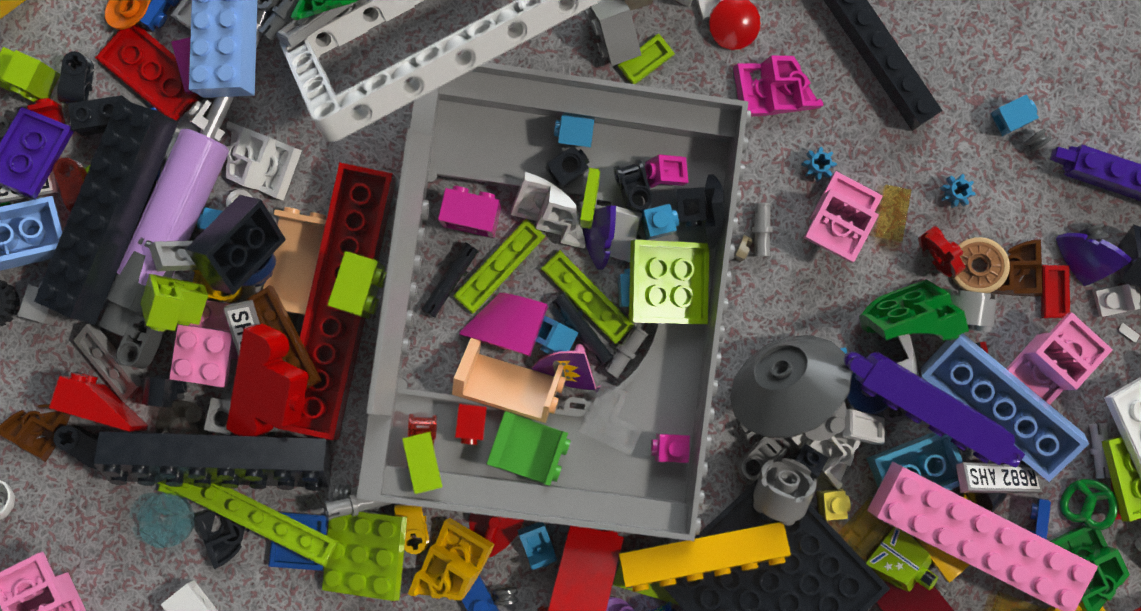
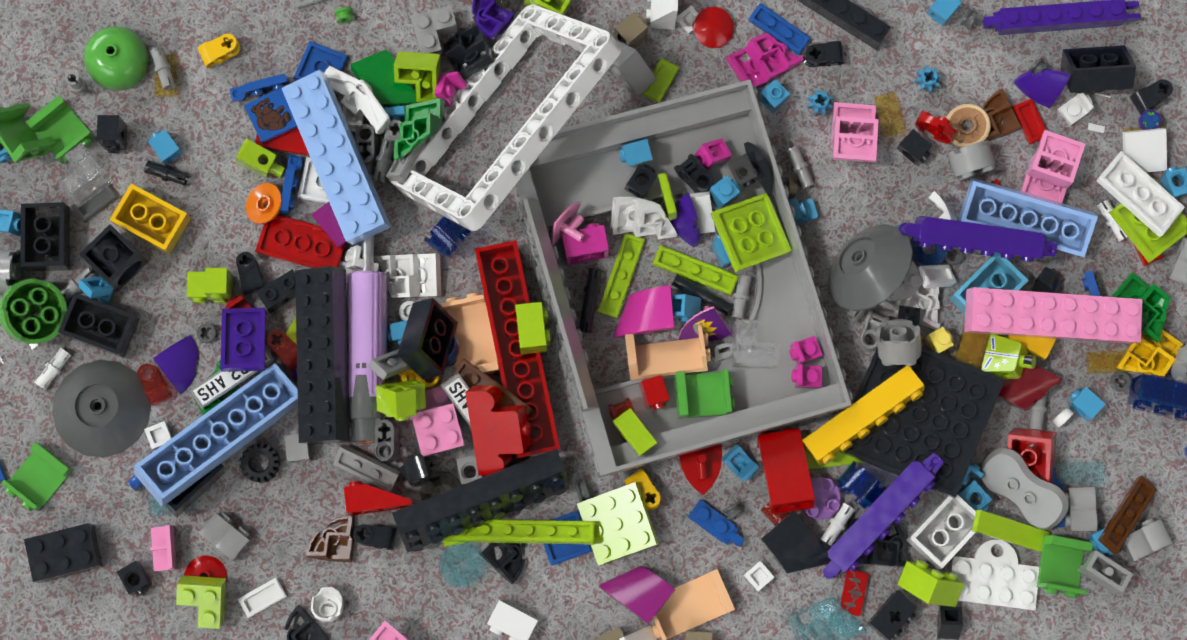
camera: 20 degrees left, 5 degrees down
(310, 139) = (446, 235): none -> clear blue brick
(350, 506) = (595, 490): light grey pin -> none
(452, 563) = (684, 503): yellow slope -> none
(457, 179) = (567, 224): none -> bright pink shield
(659, 479) = (807, 376): none -> dark pink bracket
(743, 283) = (804, 211): none -> dark azure bracket
(769, 133) = (774, 96): none -> dark azure brick
(810, 58) = (779, 29): none -> blue tile
(853, 110) = (827, 54): none -> black piece
(906, 265) = (915, 147): none -> black brick
(914, 310) = (933, 175): green slope -> none
(998, 478) = (1047, 269): tile -> none
(1089, 503) = (1121, 261): green piece -> none

